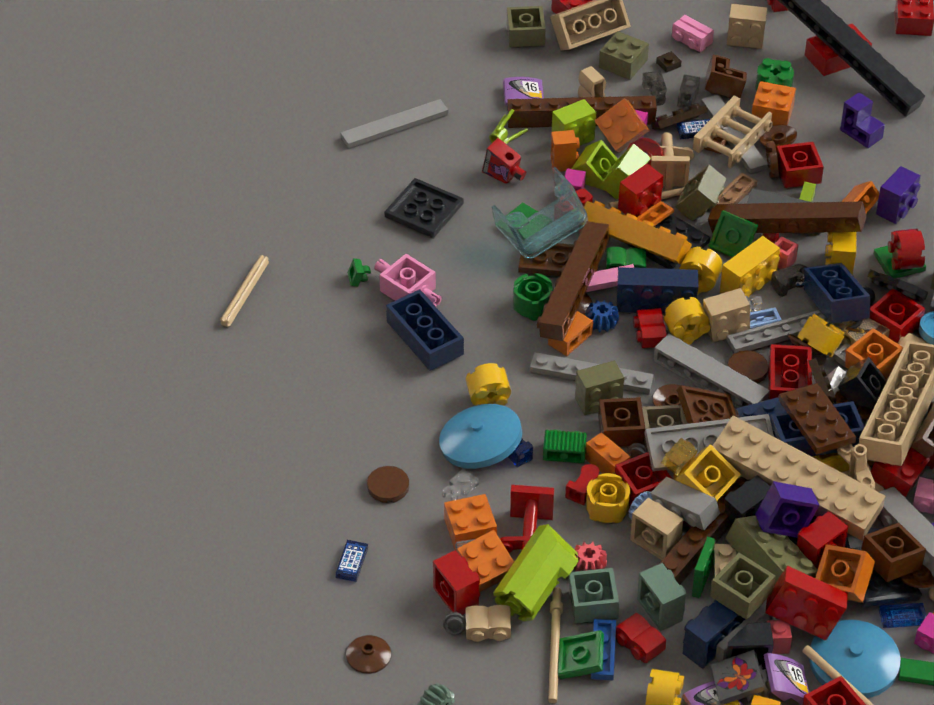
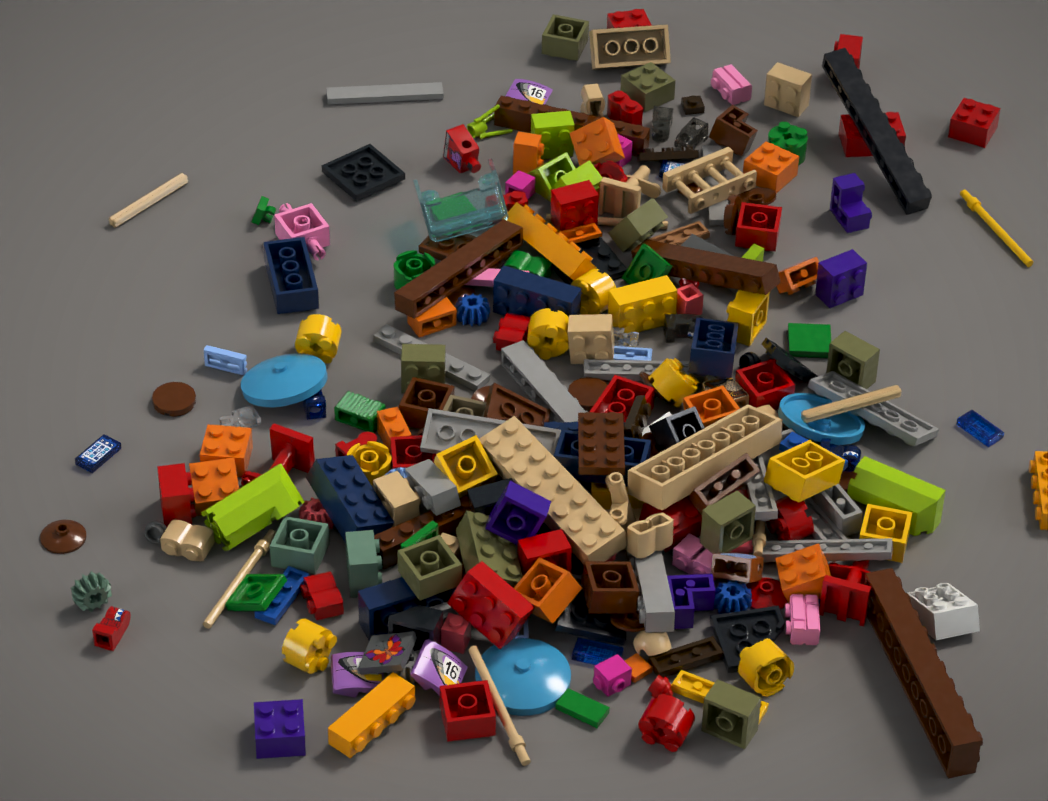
camera: 20 degrees right, 5 degrees down
(413, 431) = (225, 360): none -> light blue tile
(615, 537) = (348, 496): none -> dark blue brick
(619, 83) = (624, 109): none -> red brick
(679, 456) = (445, 437): clear yellow brick -> none
(900, 491) = (650, 535): none -> tan brick
(907, 249) = (812, 327): red brick -> none

